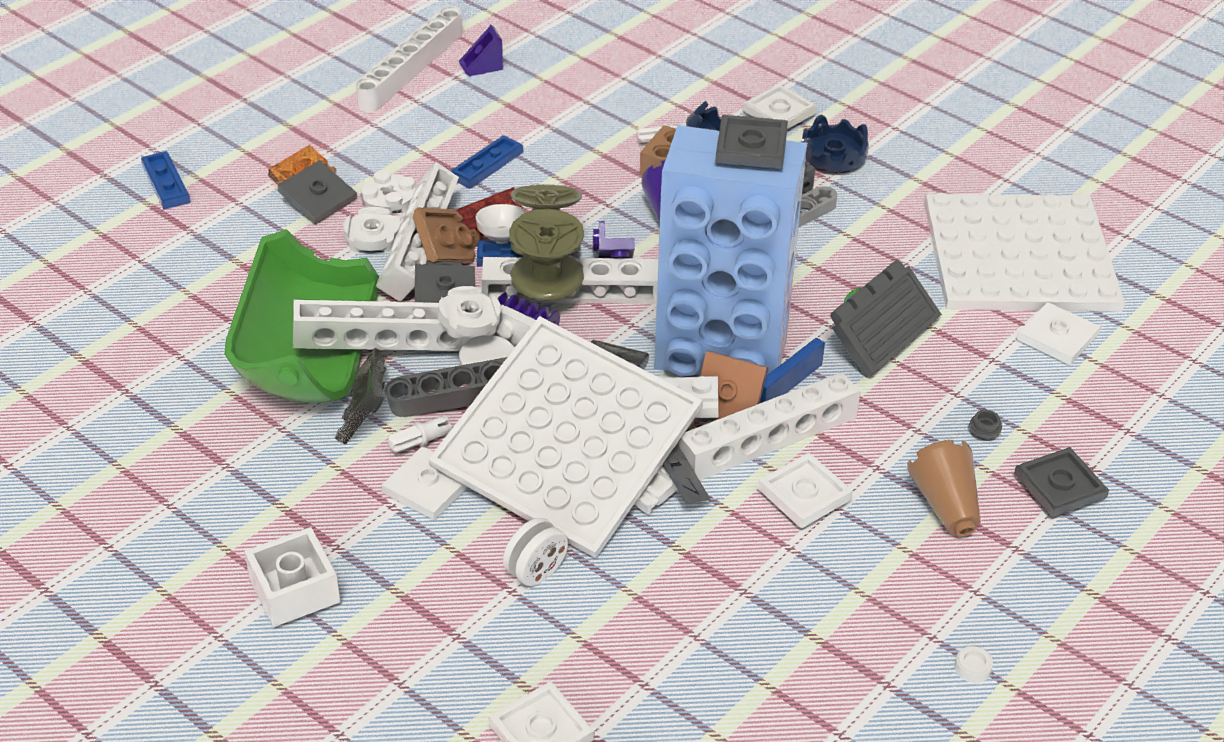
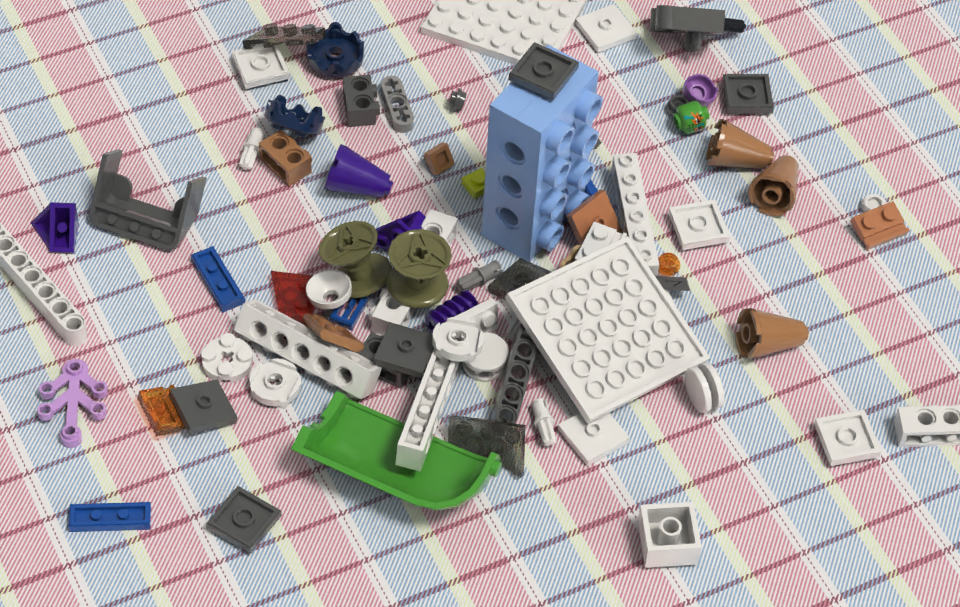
camera: 70 degrees left, 10 degrees up
(191, 256) = (244, 519): none -> dark grey plate
(319, 113) = (72, 398): none -> lavender plant
(534, 84) = (119, 213): none -> dark grey windscreen
(599, 328) = (479, 276): none -> light grey axle
(661, 594) = (768, 333): none -> medium nougat cone
(723, 479) = (668, 264): none -> clear orange plate
(820, 102) = (289, 33): none -> clear smoke wing
(842, 245) = (457, 99): none -> dark grey plate
(921, 541) = (776, 187): none -> medium nougat cone
(937, 675) = (879, 225): none -> nougat plate
(973, 430) = (690, 117): none -> bright green head
(1021, 431) = (700, 89): none -> medium lavender hair
(1115, 385) = (693, 23): none -> dark grey piece

